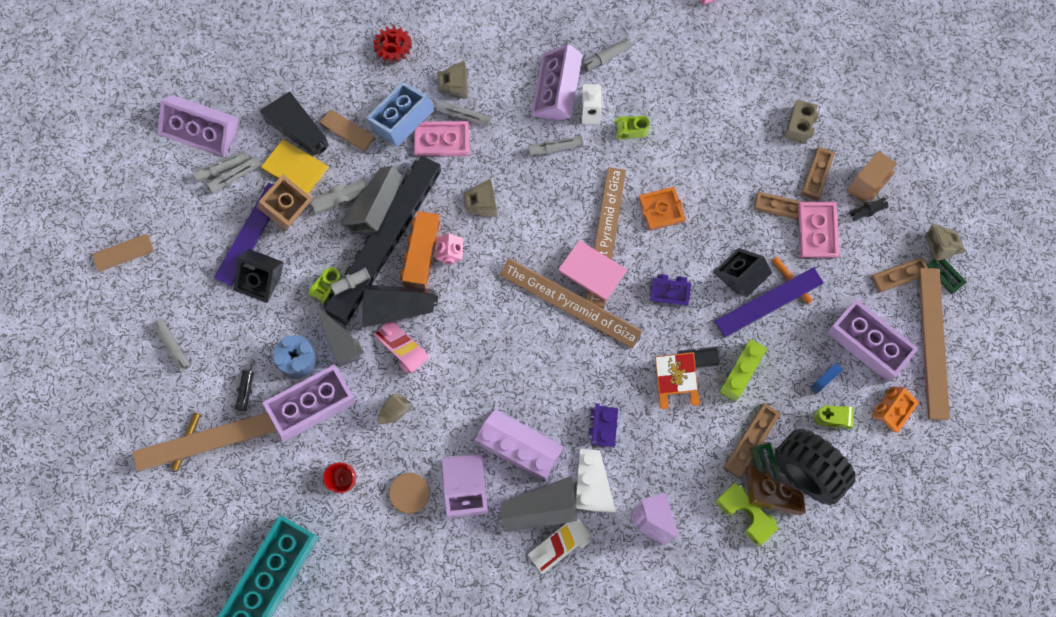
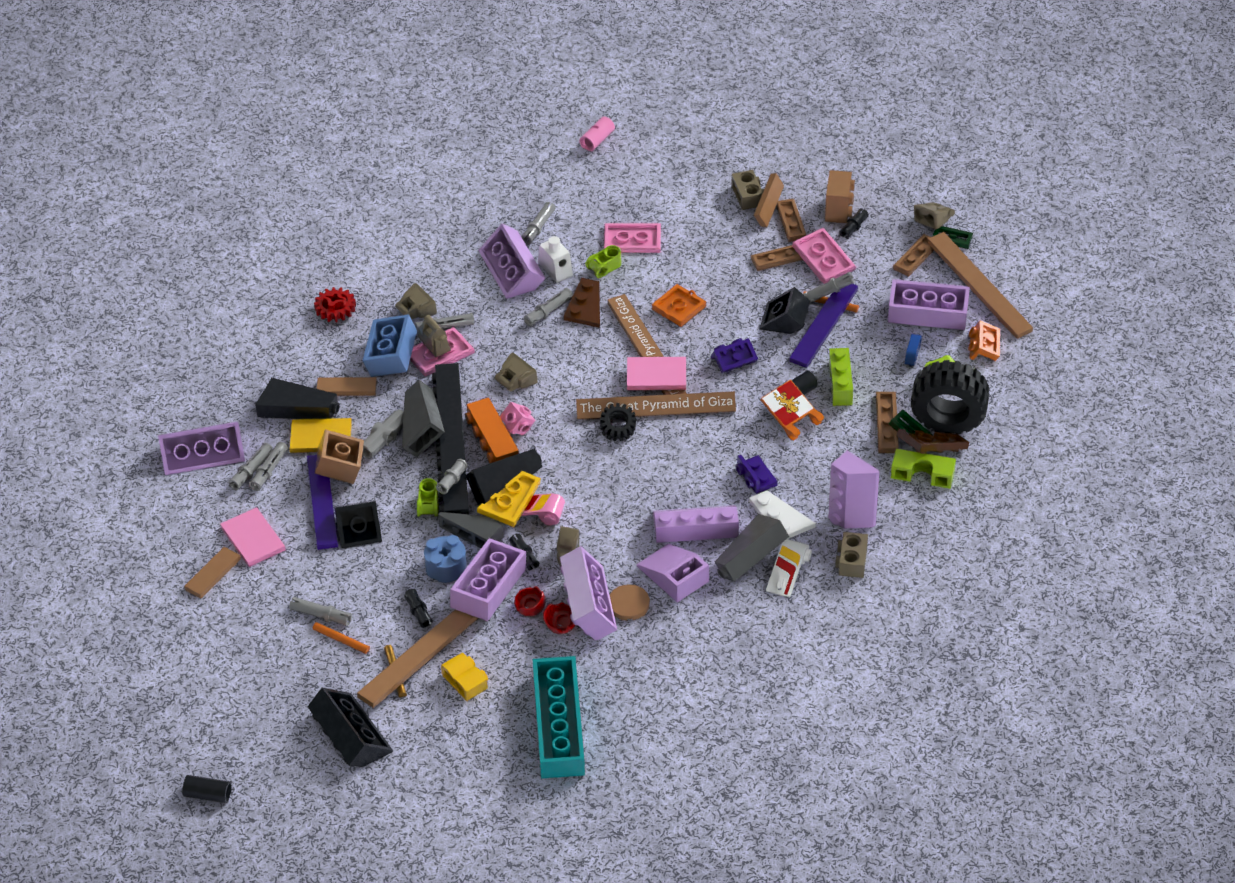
camera: 30 degrees left, 25 degrees down
(109, 479) = (348, 727): none -> black slope
(170, 380) = (341, 638): none -> orange bar
(175, 236) = (252, 537): none -> bright pink tile
(229, 485) = (464, 676): none -> yellow brick
(335, 438) = (531, 598): none -> red hair
(364, 386) = (520, 544): none -> black pin
(373, 472) = (587, 593): none -> lavender brick
(381, 334) = (512, 500): none -> yellow wing
(440, 126) = (433, 337): none -> dark tan piece
(520, 292) = (617, 412): none -> black tyre
(587, 160) = (585, 304): none -> reddish brown wing
(626, 572) = (853, 554): none -> dark tan brick
(673, 114) = (633, 237): none -> bright pink tile
(800, 273) = (833, 285): none -> light grey pin
(810, 144) = (769, 200): none -> medium nougat tile

